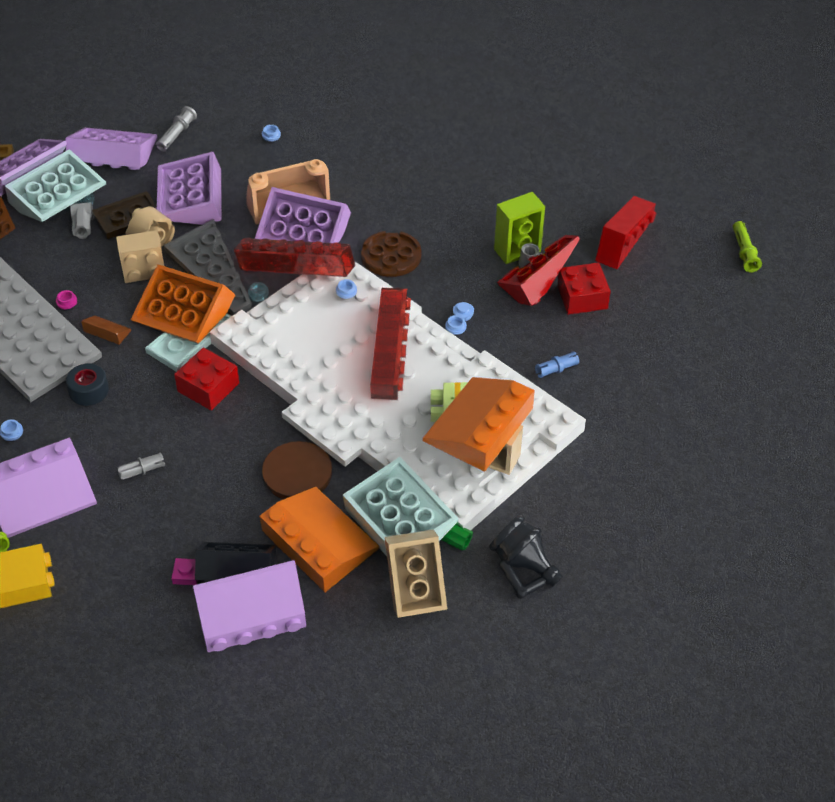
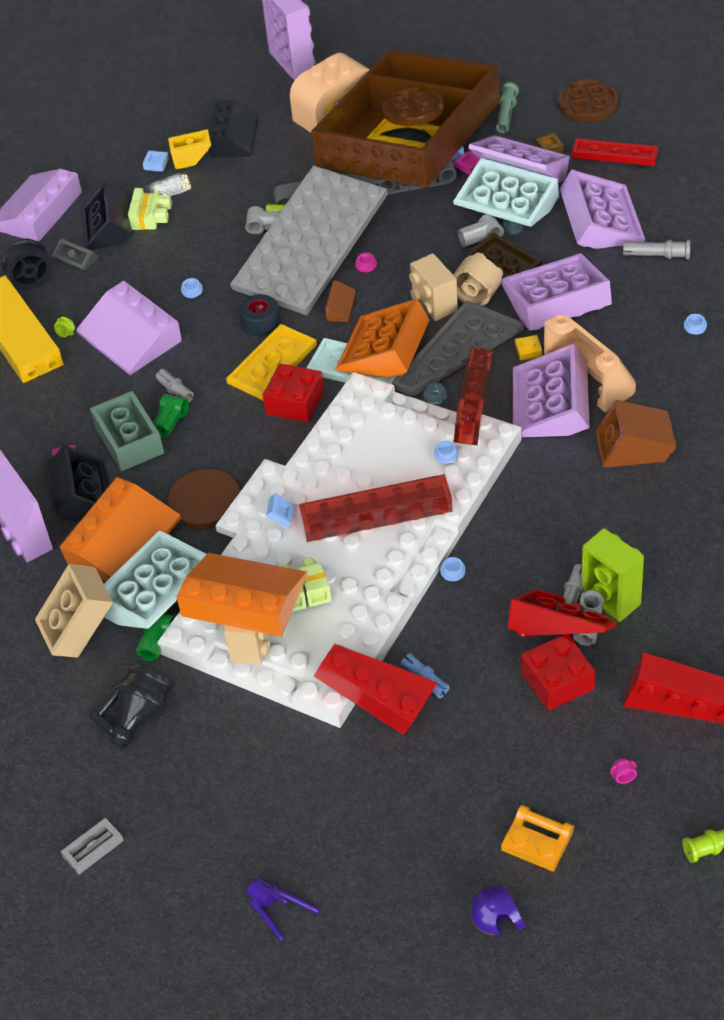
camera: 80 degrees right, 0 degrees up
(42, 121) = (615, 152): none -> red plate
(149, 391) = (281, 346): none -> yellow tile
(174, 472) = (170, 410): none -> green piece
(188, 507) = (127, 431): none -> sand green brick
(237, 227) = (528, 347): none -> yellow plate
(361, 404) = (280, 510): none -> light blue plate
(373, 192) = (634, 435): none -> dark orange slope
(391, 254) = (547, 485): reddish brown tile -> none
(464, 310) = (478, 570): light blue plate -> none
(501, 260) = (573, 587): none -> light grey axle
(573, 385) = (376, 686): none -> red wedge
(666, 634) = (94, 848): none -> light grey tile
(678, 279) = (623, 770): none -> dark pink plate
(725, 344) = (533, 845): none -> light orange plate
(736, 502) = (265, 894): none -> dark purple plant
(784, 368) = (490, 907): none -> dark purple helmet

